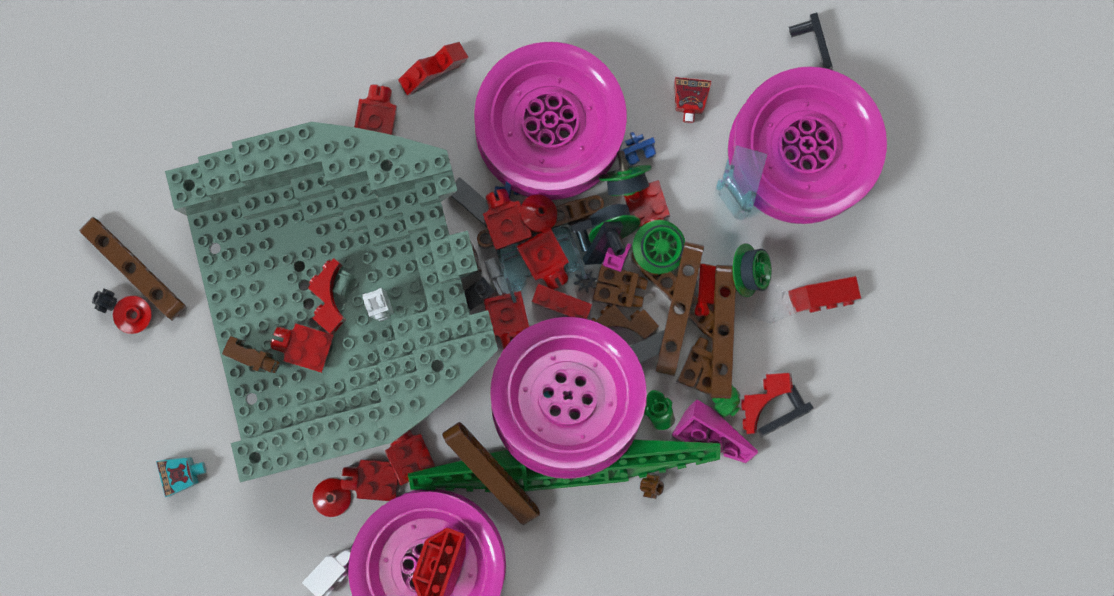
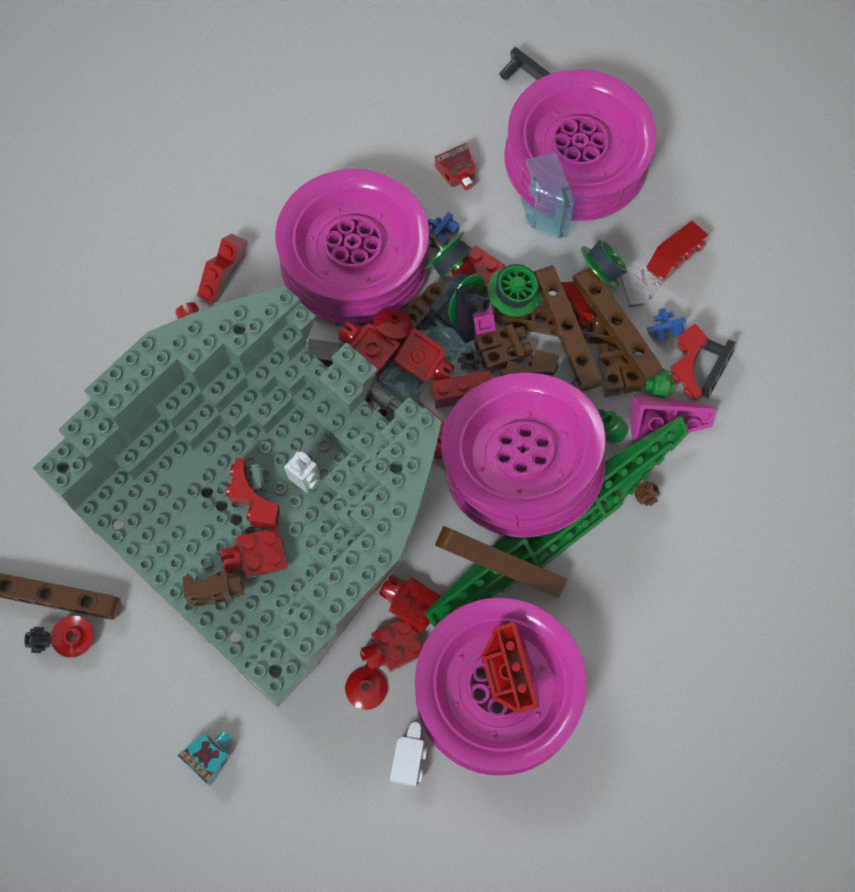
camera: 35 degrees left, 15 degrees down
(760, 352) = (658, 330): none -> blue hips

